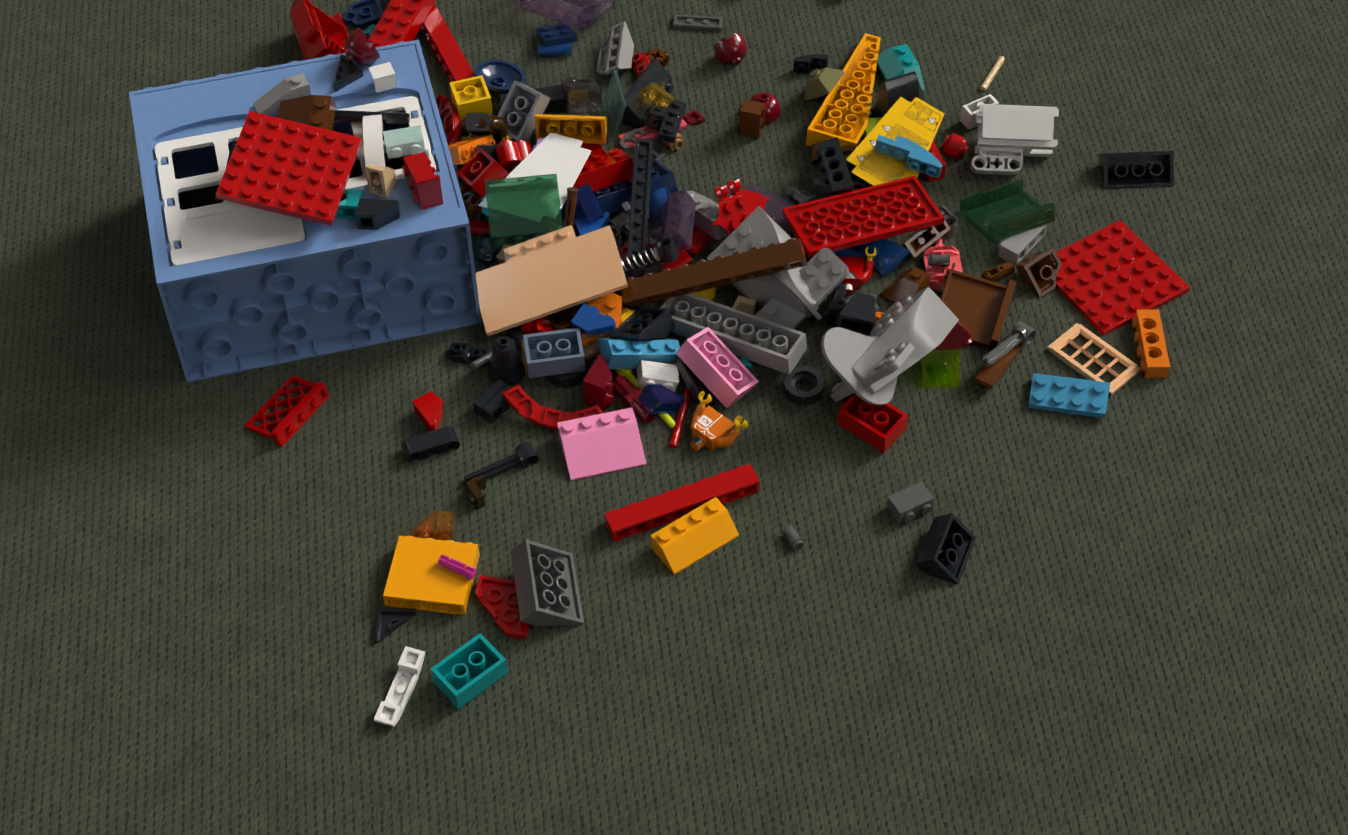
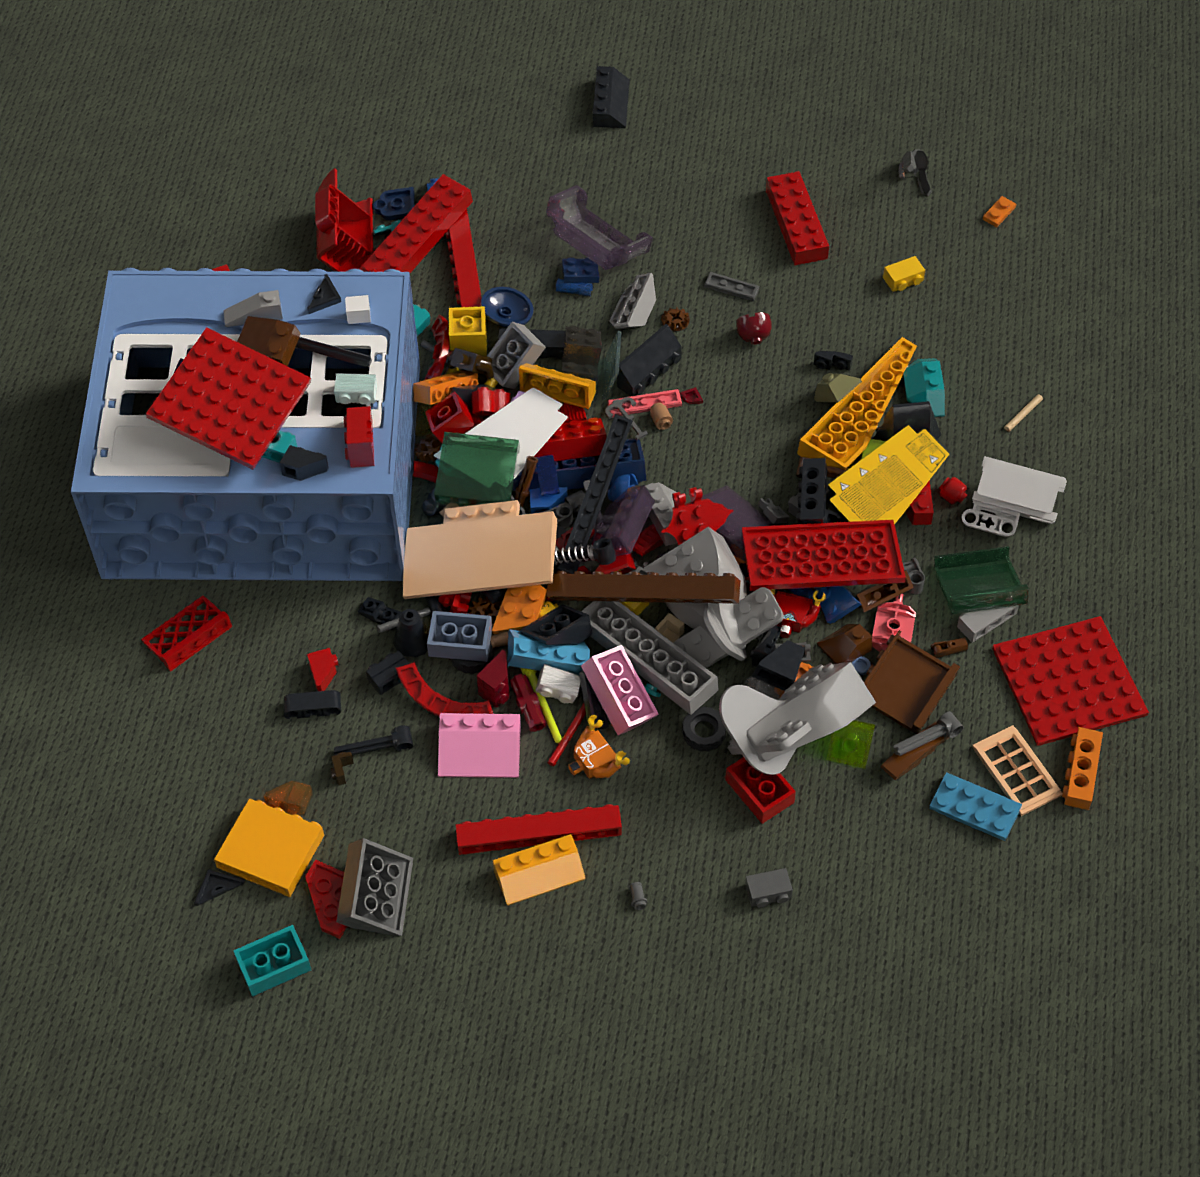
camera: 15 degrees right, 5 degrees up
(360, 48) = (344, 273): dark red cylinder -> none
(373, 140) = (323, 386): white slope -> none
(380, 180) = (318, 426): tan slope -> none
(401, 688) = (204, 961): white slope -> none
(456, 566) = (293, 847): dark pink axle -> none
(592, 322) = (505, 612): blue slope -> none
(640, 62) = (655, 321): red plate -> none
(657, 94) = (659, 364): clear yellow hips -> none
(660, 399) = (551, 712): clear blue slope -> none
(667, 121) = (661, 396): black plate -> none
(751, 118) = (748, 413): reddish brown brick -> none
(772, 106) = (766, 402): dark red cylinder -> none
(915, 156) = (900, 497): dark azure slope -> none
(938, 260) = (888, 621): dark grey pin -> none
(946, 549) = (788, 948): black slope -> none
(957, 337) = (877, 715): dark red slope -> none
(969, 111) = (999, 451): white brick -> none
(1040, 271) = (993, 657): reddish brown slope -> none
(1137, 169) = (1139, 561): black slope -> none

